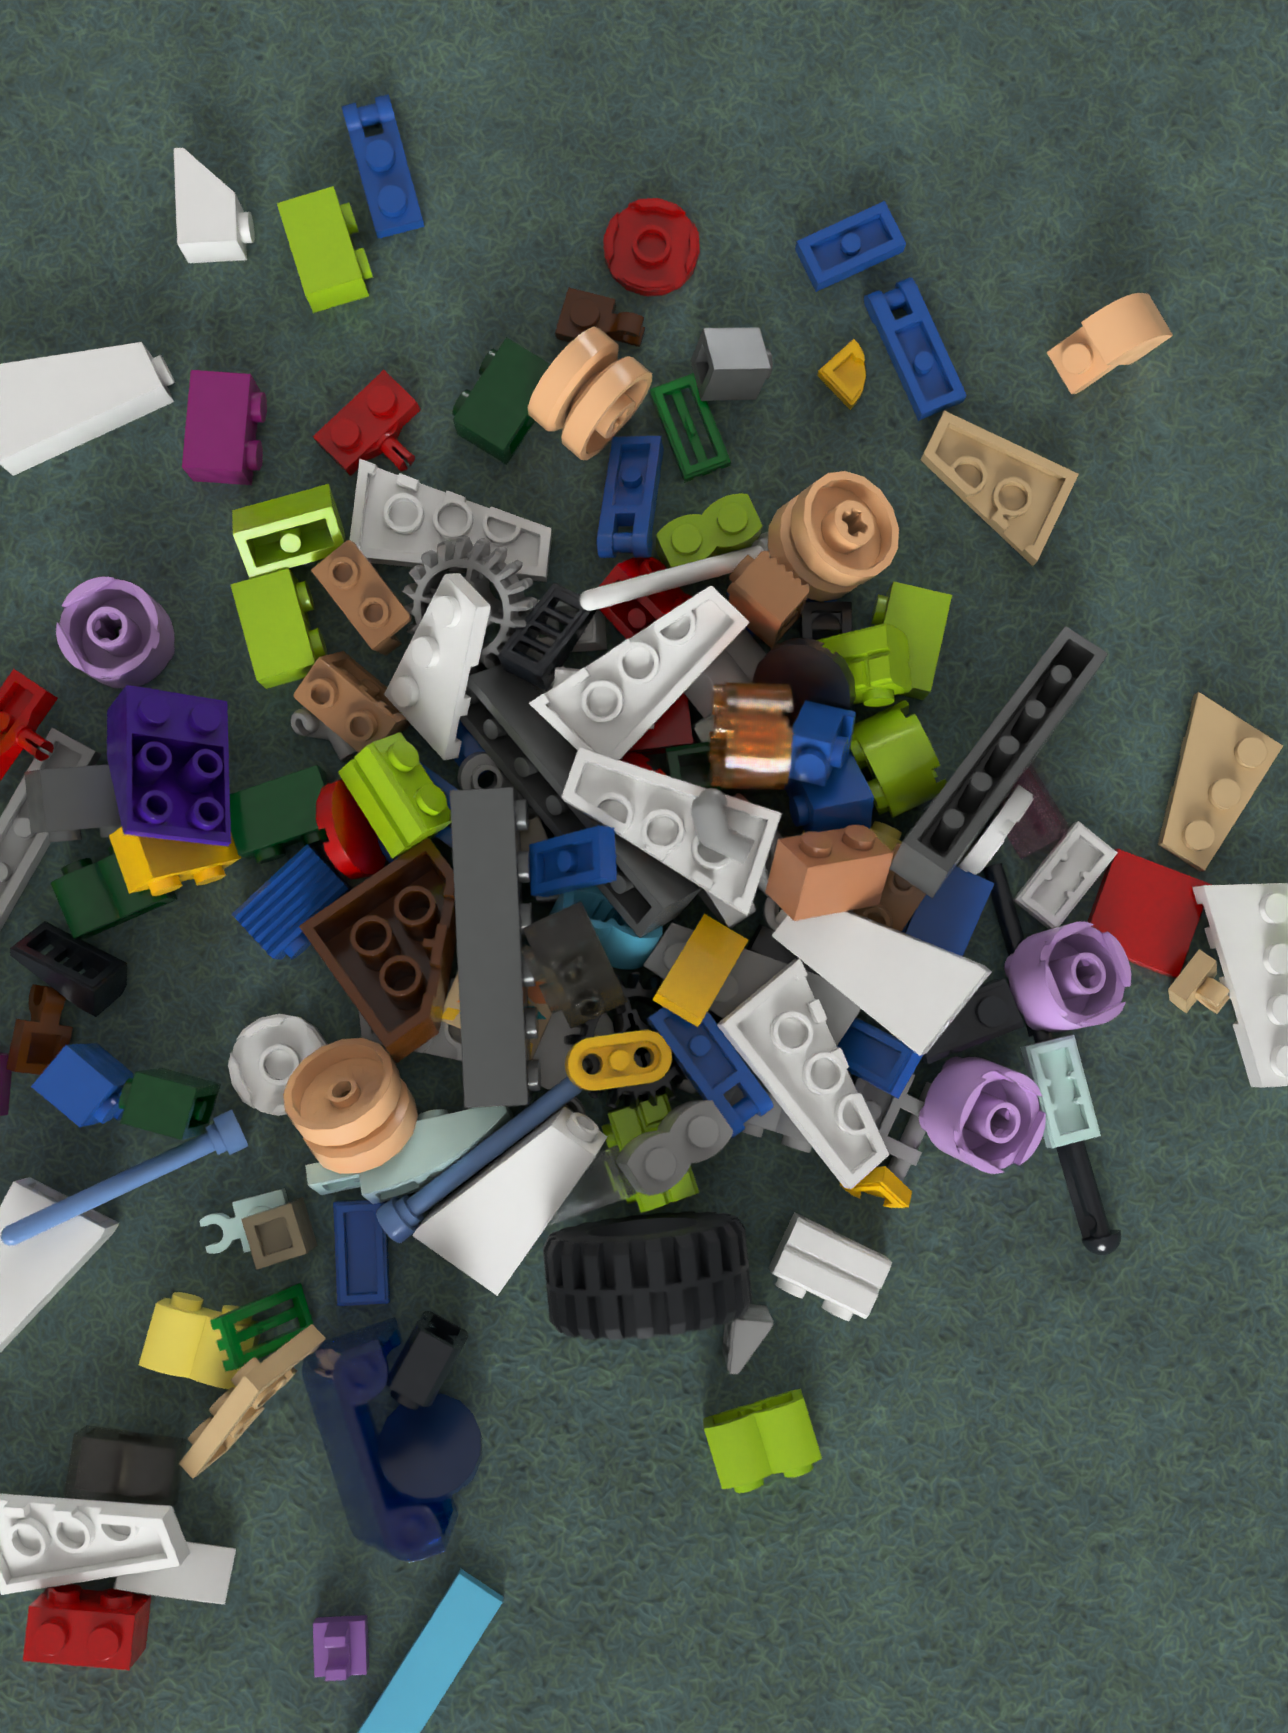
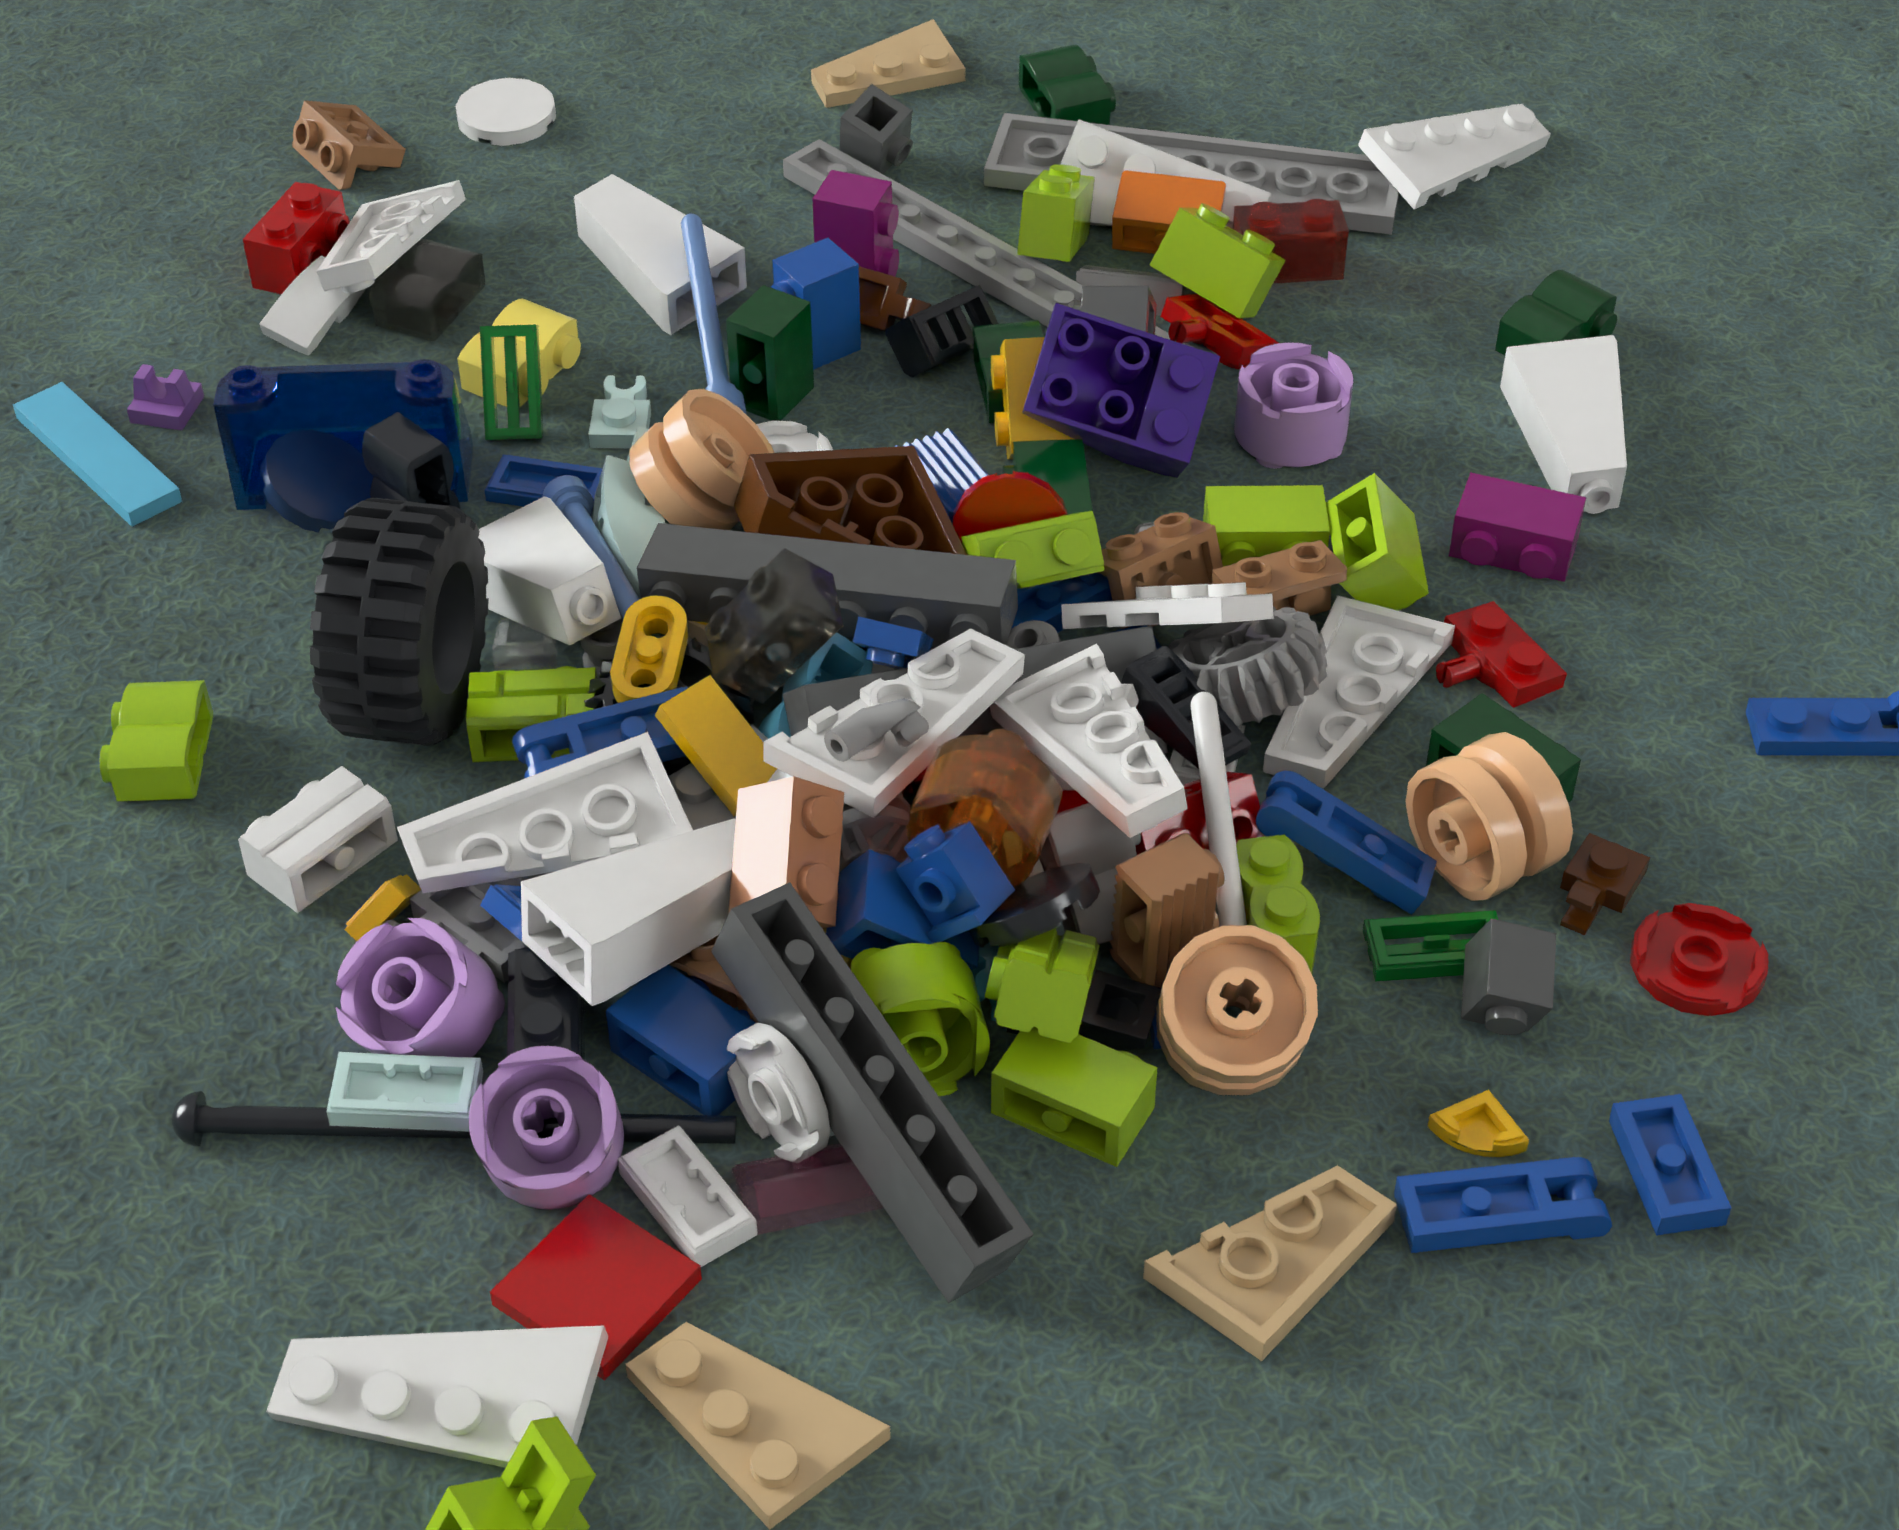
camera: 110 degrees right, 40 degrees down
(208, 214) = (1791, 558): white slope -> none
(244, 1403) = (452, 339): tan wing -> none
(279, 1233) = (599, 416): dark tan panel -> none
(323, 248) = (1728, 644): lime brick -> none
(685, 1136) = (525, 668): light grey brick -> none
(744, 1336) = (289, 720): light grey slope -> none
(1109, 338) = (1471, 1440): light nougat brick -> none
(1198, 983) = (470, 1295): tan tile -> none

